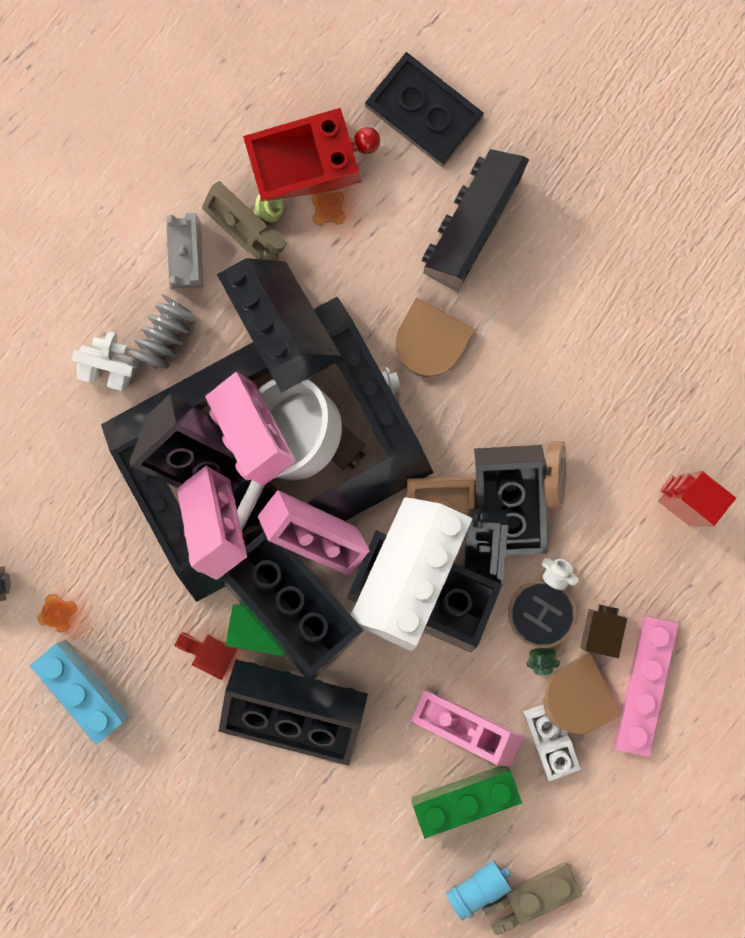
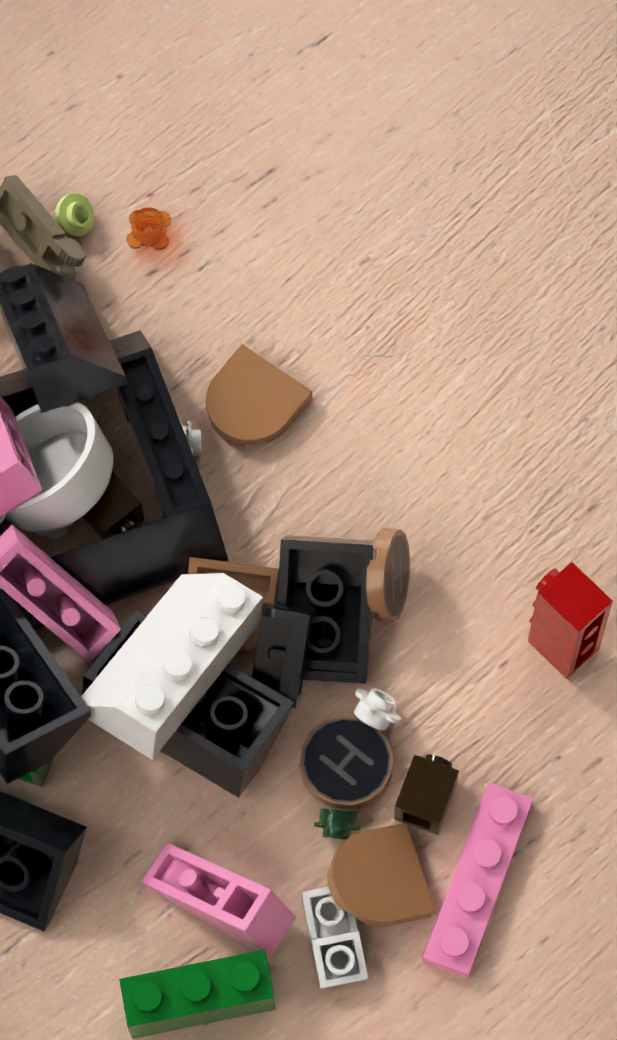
camera: 10 degrees right, 20 degrees down
(299, 156) = (121, 162): red slope -> none
(424, 109) = (290, 134): black tile -> none
(474, 218) = (332, 260): black slope -> none

